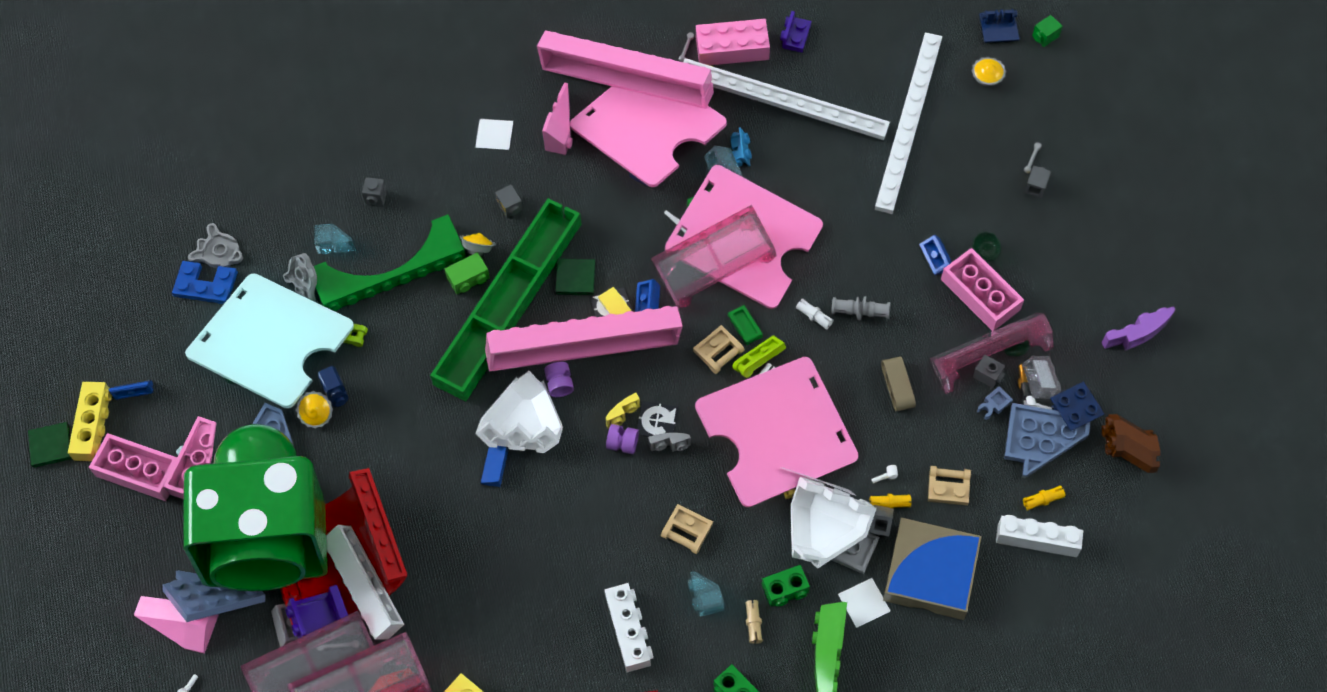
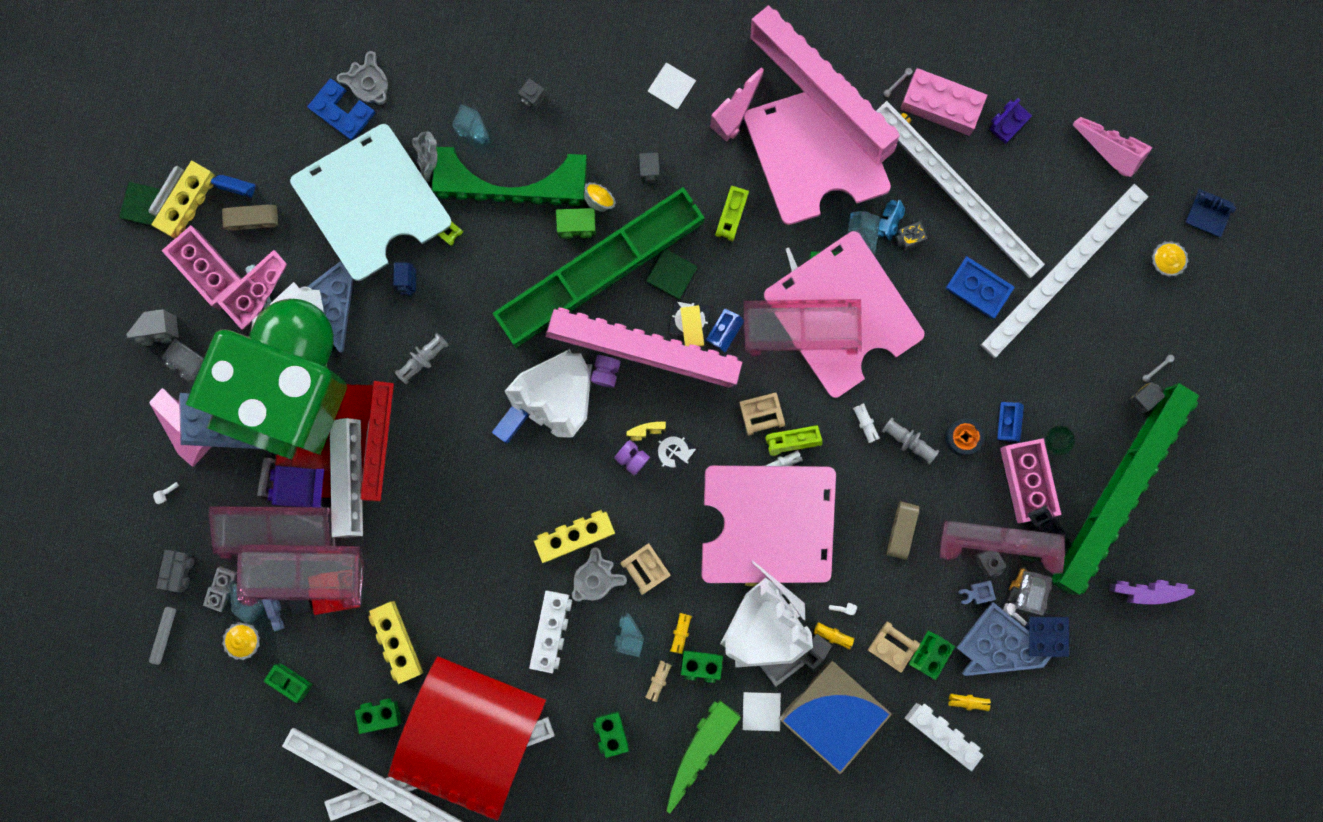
camera: 25 degrees right, 20 degrees up
(68, 420) = (166, 190): none -> light grey axle
(110, 541) = (154, 327): none -> light grey slope
(153, 558) = (183, 359): none -> clear brick
(160, 407) = (250, 217): none -> dark tan beam
(314, 409) = (379, 290): yellow piece -> none
(382, 447) = (421, 358): none -> light grey piece
(589, 558) = (544, 540): none -> light yellow brick
(601, 204) = (732, 212): none -> lime plate
(644, 561) = (595, 578): none -> light grey tile
(677, 441) = (677, 483): light grey slope -> none
(745, 324) = (799, 400): green tile -> none
(751, 569) = (681, 633): none -> yellow pin
(765, 152) = (911, 236): none -> dark grey brick
(847, 164) = (979, 287): none -> blue plate
(902, 15) = (1121, 153): none -> bright pink wedge
(902, 292) = (958, 444): none -> wheel
(986, 471) = (932, 655): none -> green brick
(1011, 306) = (1048, 523): none -> black slope
(1047, 31) = (1252, 243): green brick -> none
(1065, 259) = (1125, 488): none -> green piece
(1131, 443) = (1075, 698): reddish brown brick -> none

